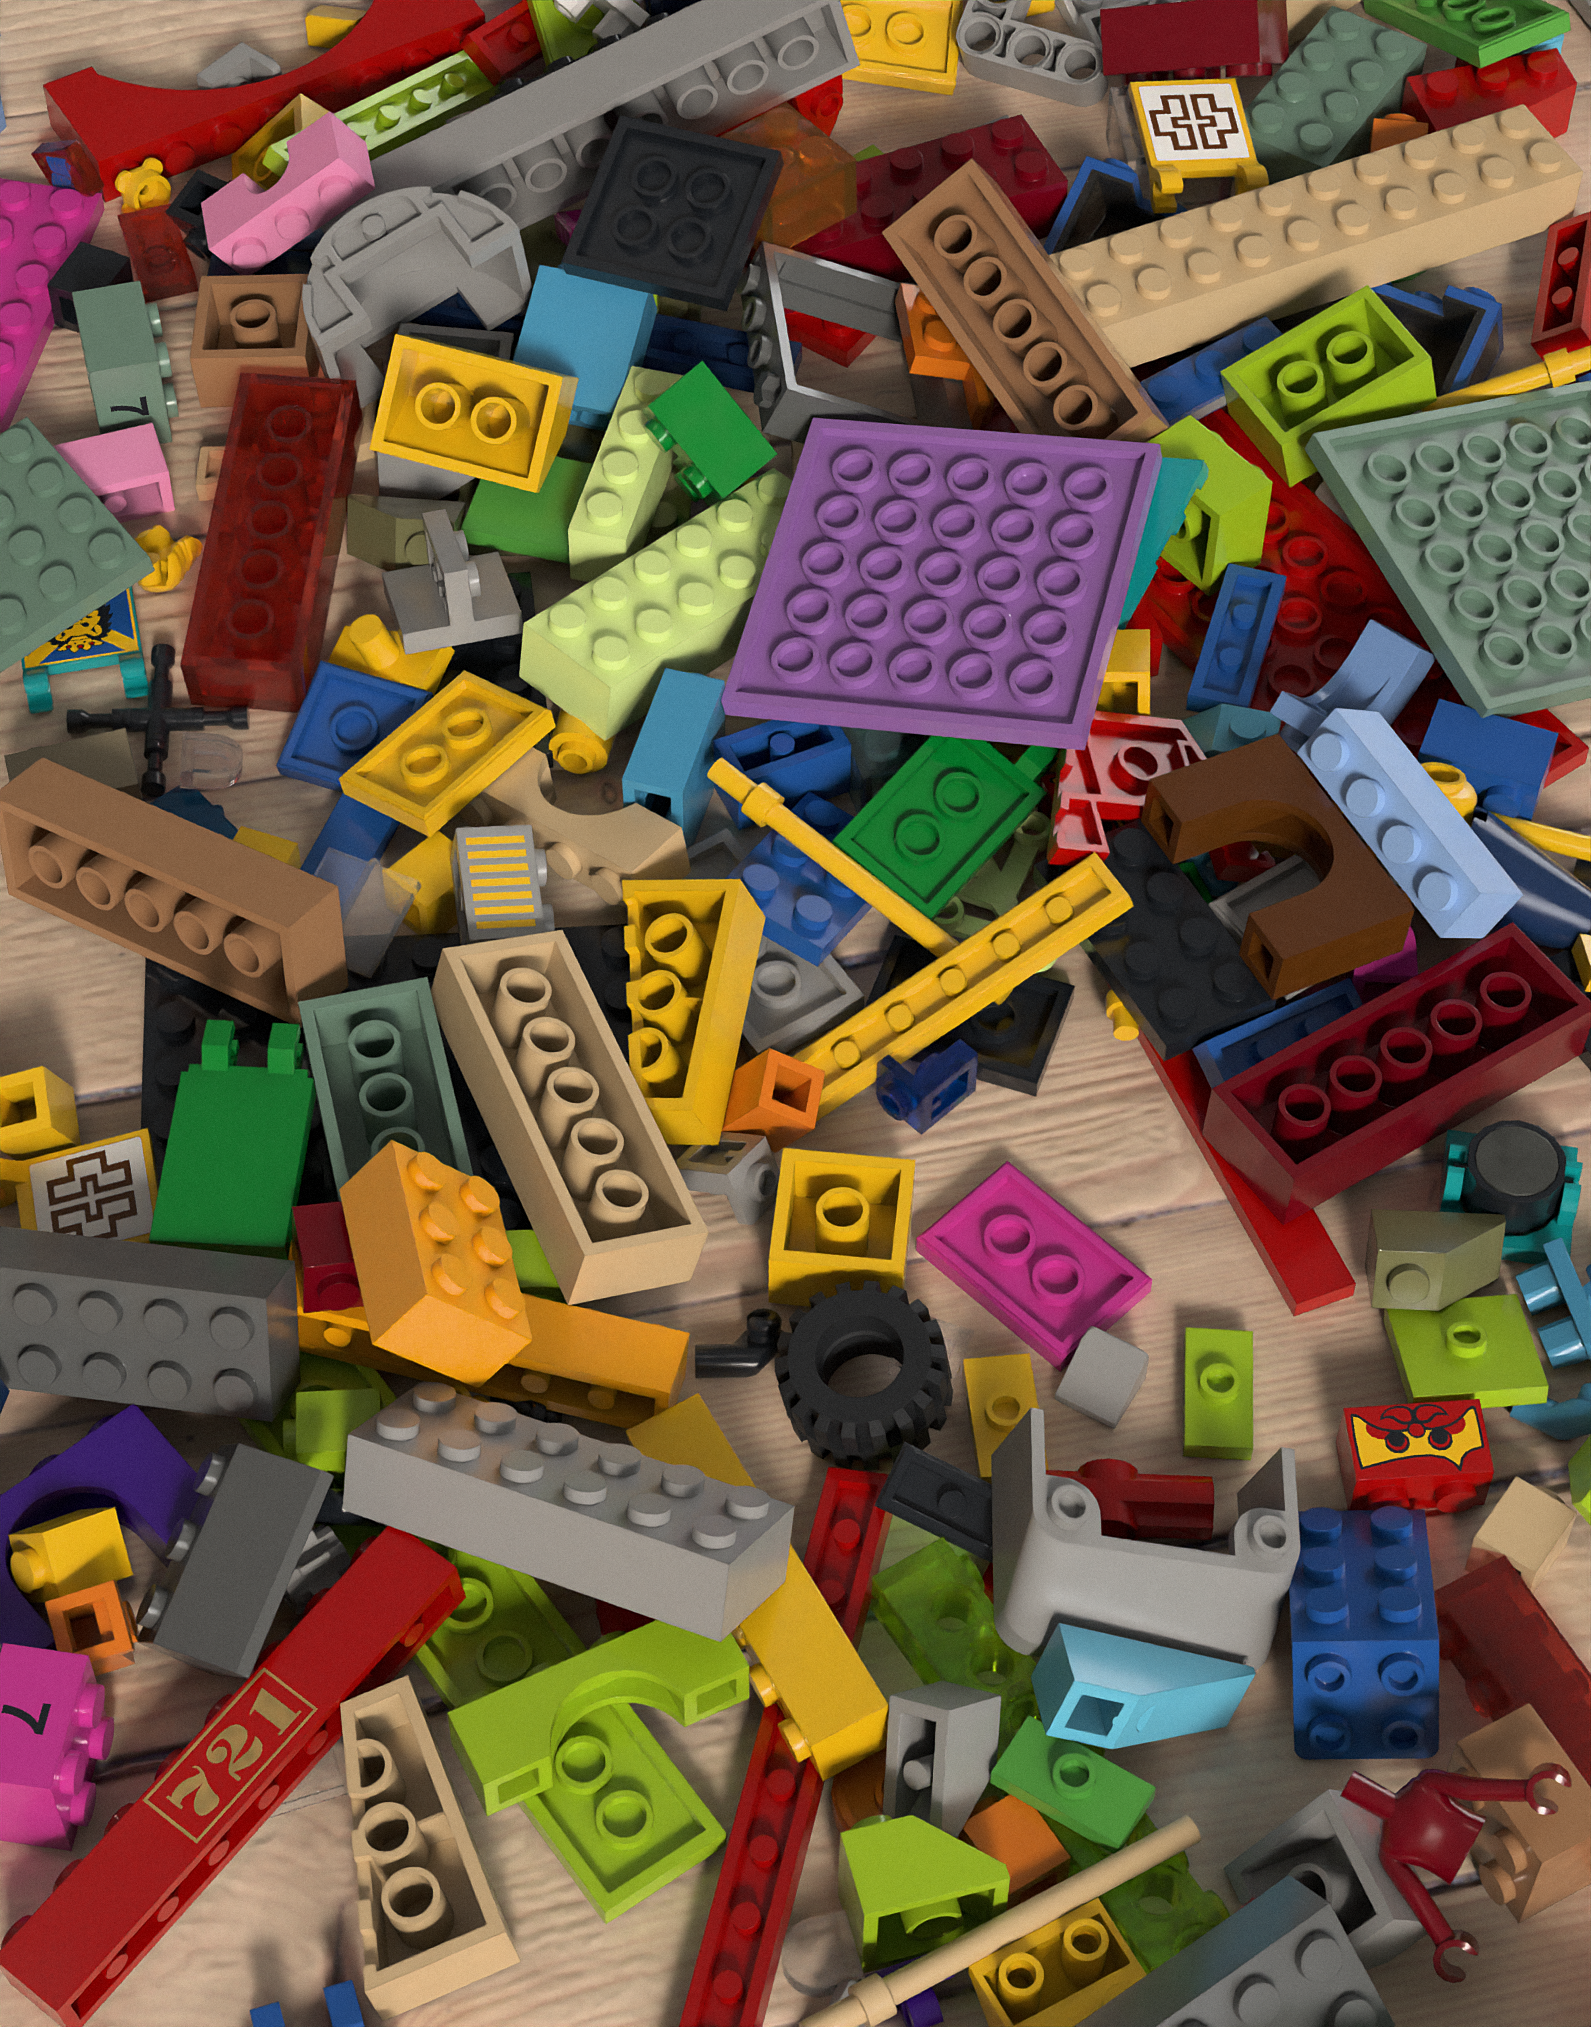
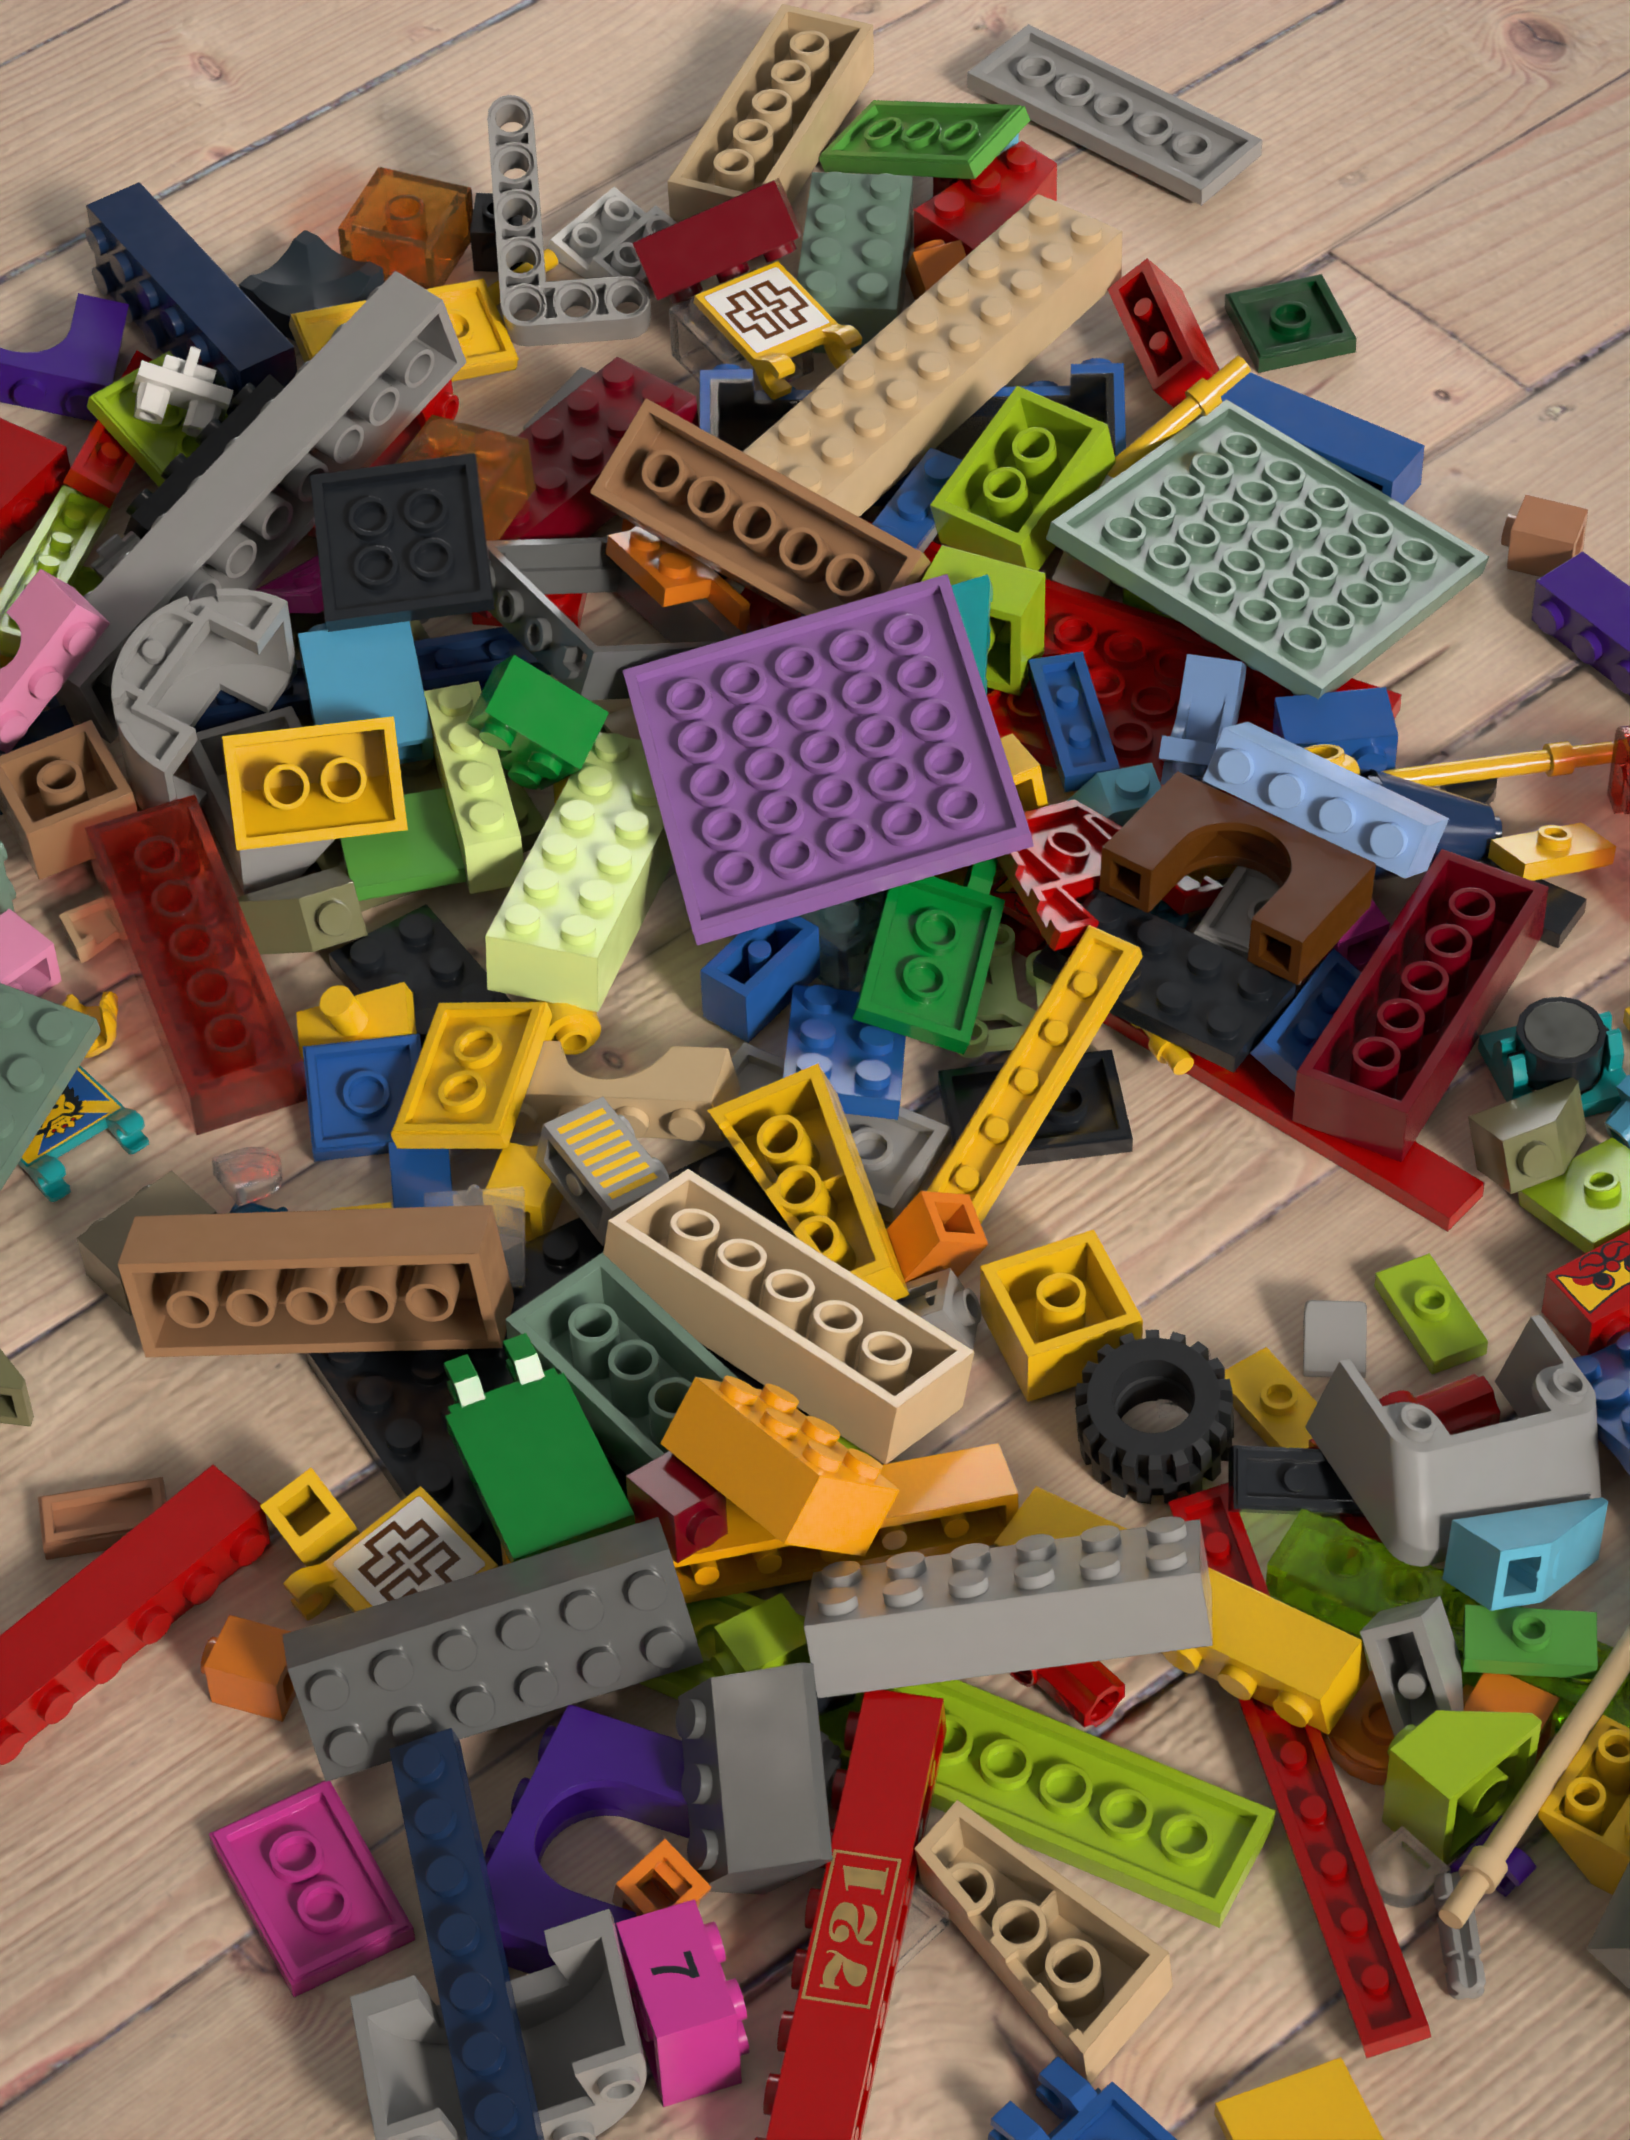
camera: 25 degrees left, 5 degrees down
(69, 1554) = (597, 1845): yellow brick -> none
(158, 720) = (173, 1154): black piece -> none
(452, 596) = (384, 943): light grey bracket -> none
(513, 1733) = (1157, 1700): lime arch -> none
(676, 750) = (671, 986): dark azure brick -> none
(747, 1354) = (1039, 1442): black arm -> none
(766, 807) = (782, 1004): yellow bar -> none
(932, 1091) = (1048, 1184): clear blue bracket -> none
(1033, 1264) = (1222, 1280): dark pink tile -> none

